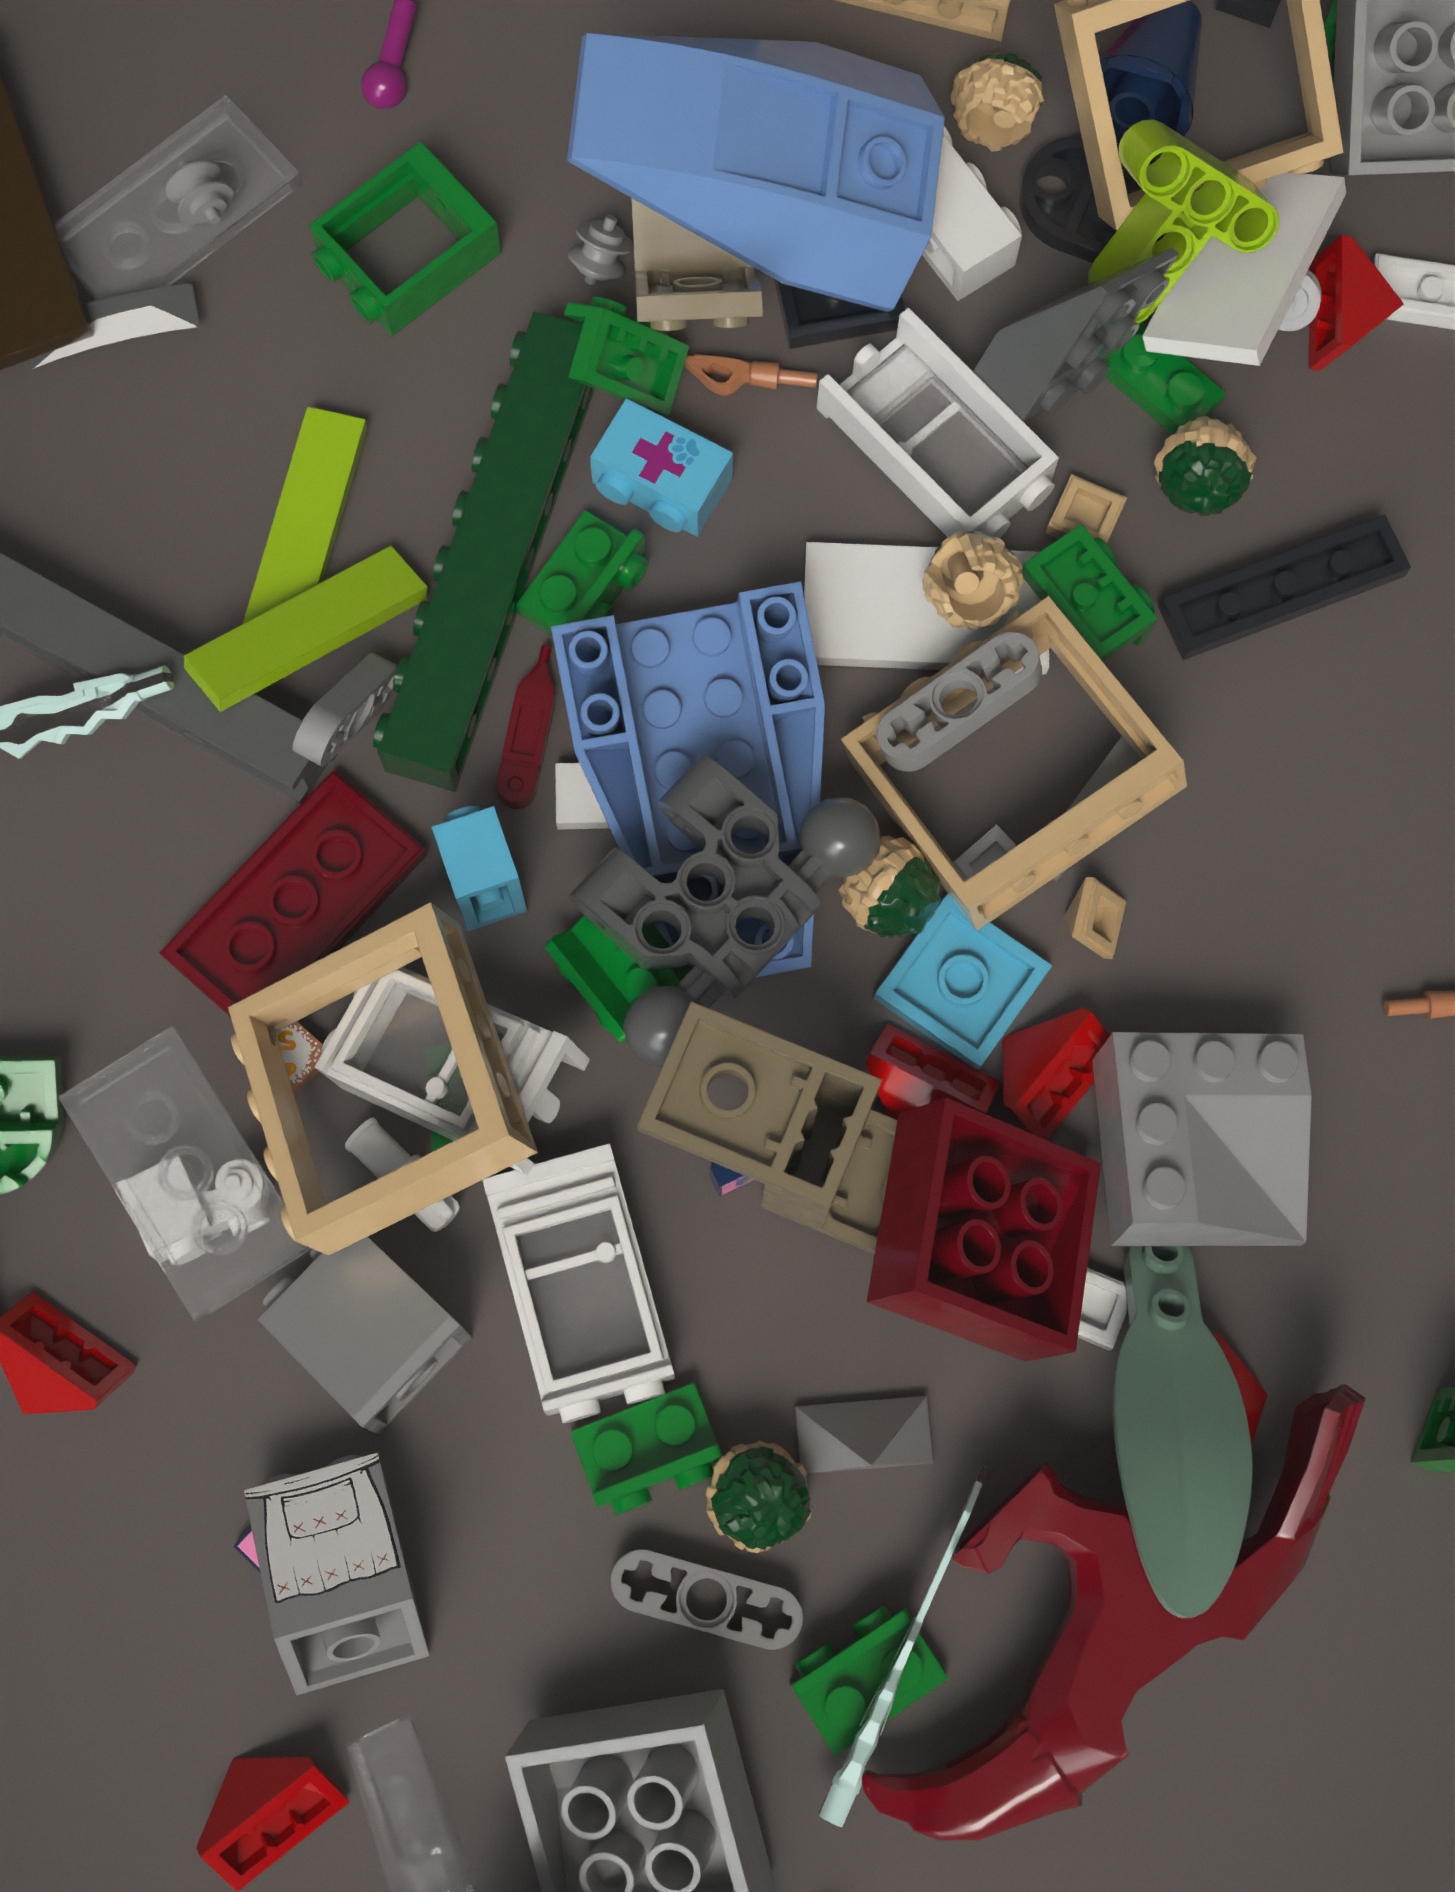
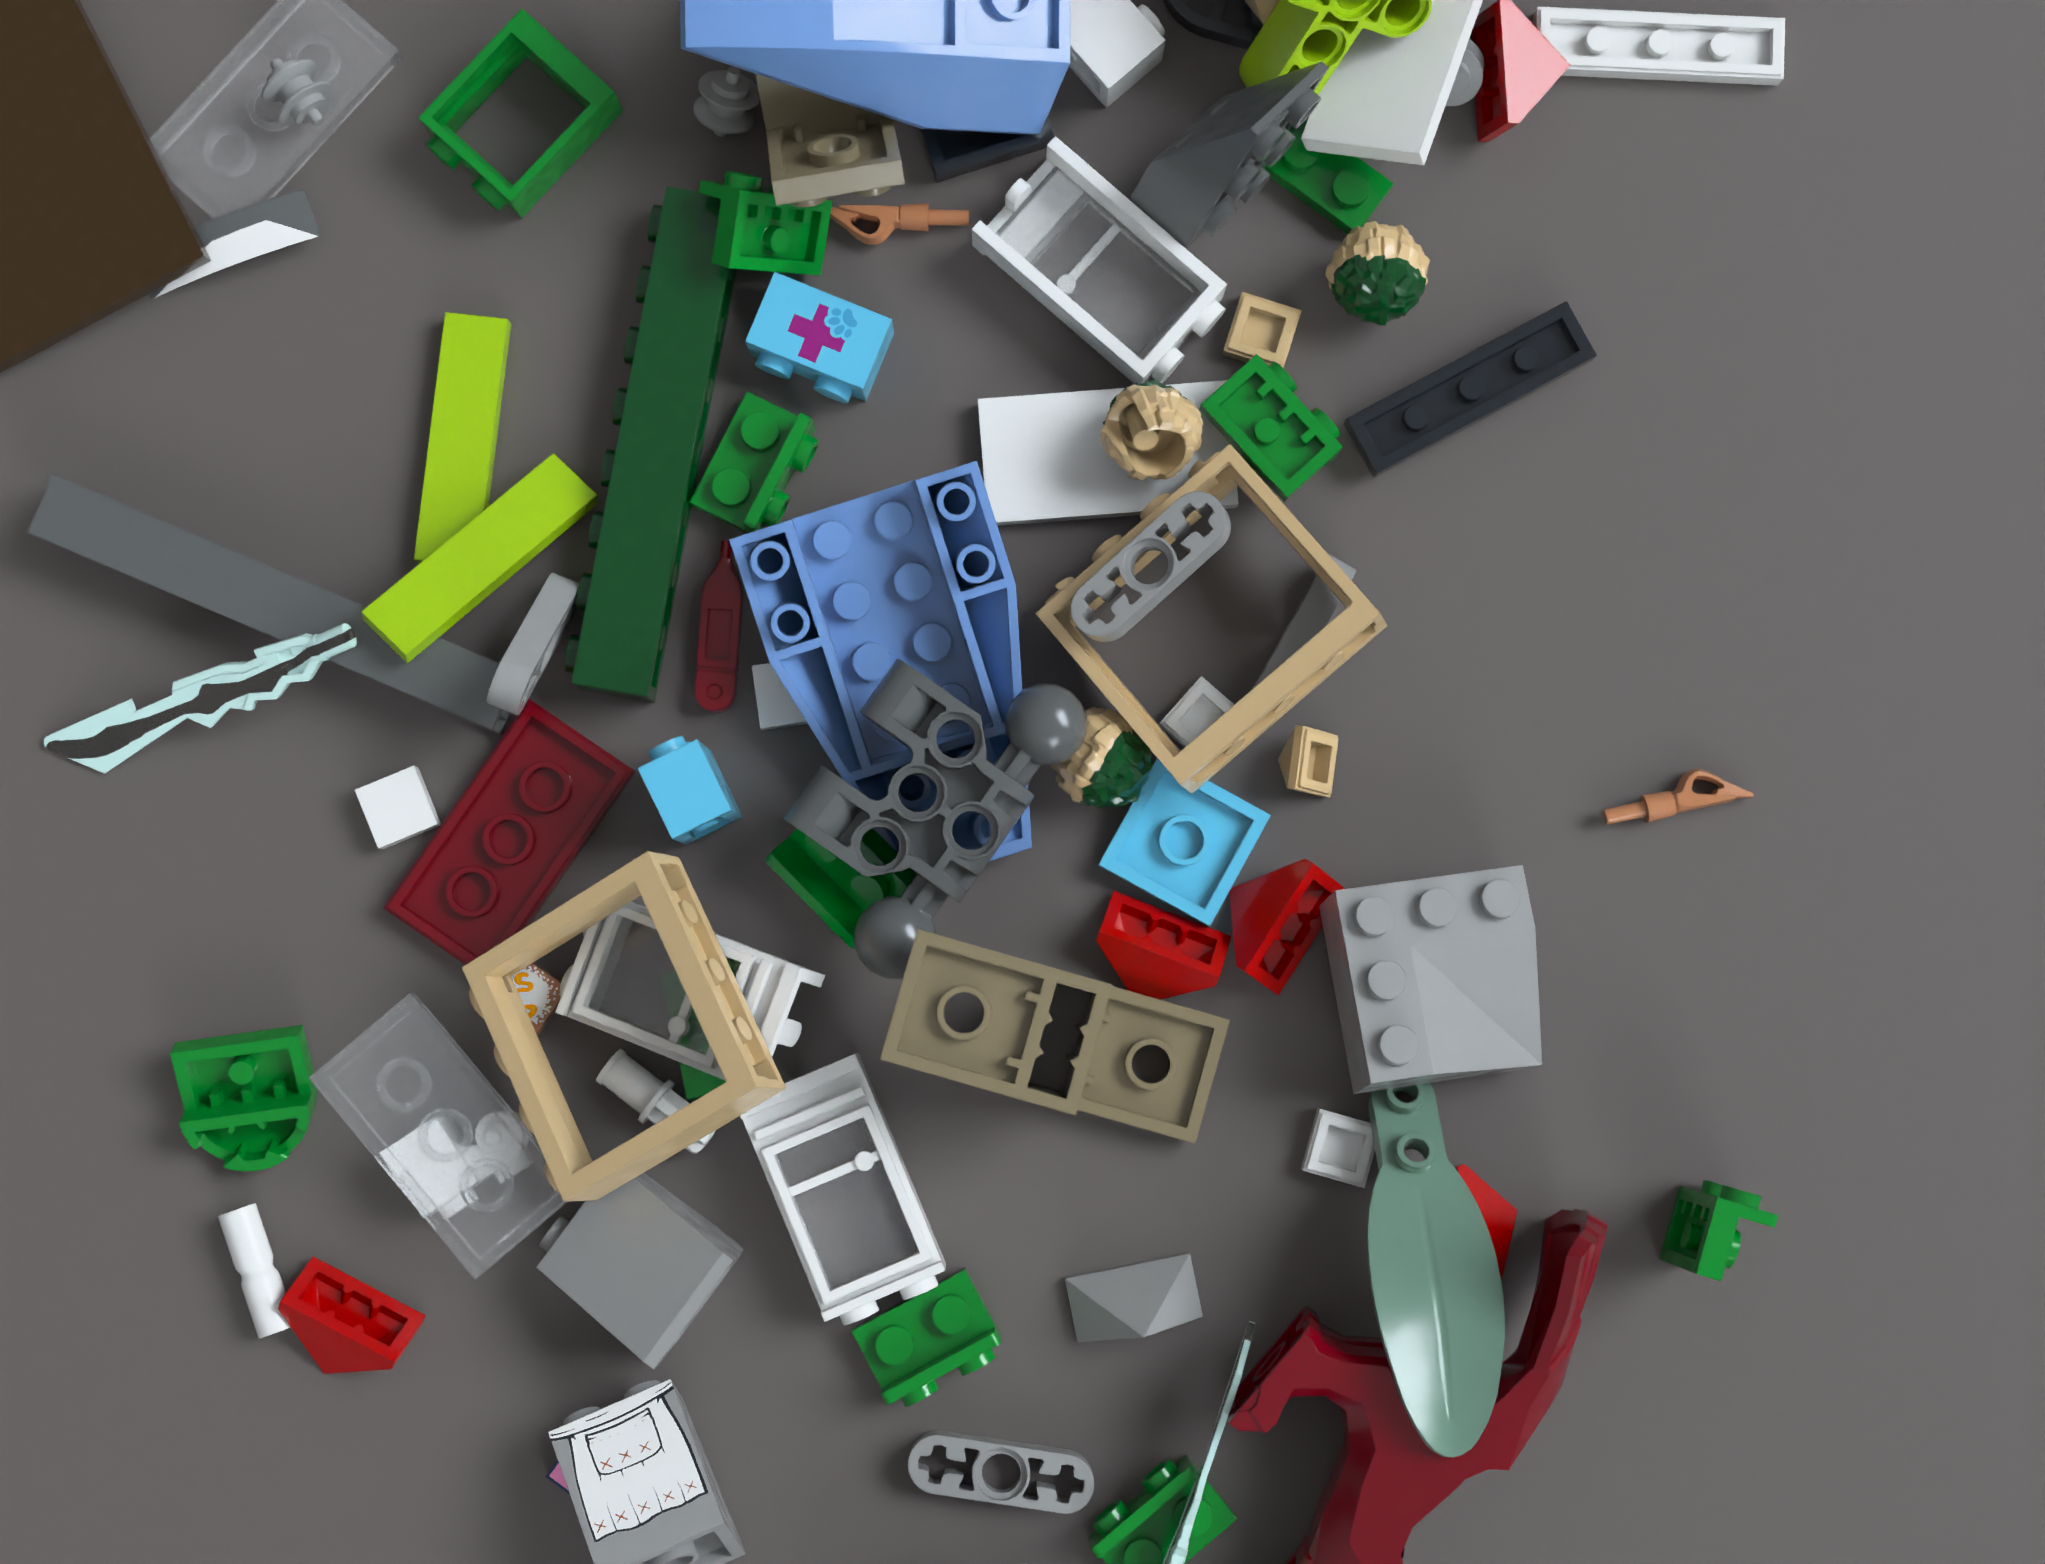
camera: 10 degrees left, 10 degrees up
(188, 859) = (398, 807): none -> white tile
(758, 1496) = (1039, 1374): dark green piece -> none
(985, 1231) = (1229, 1098): dark red slope -> none

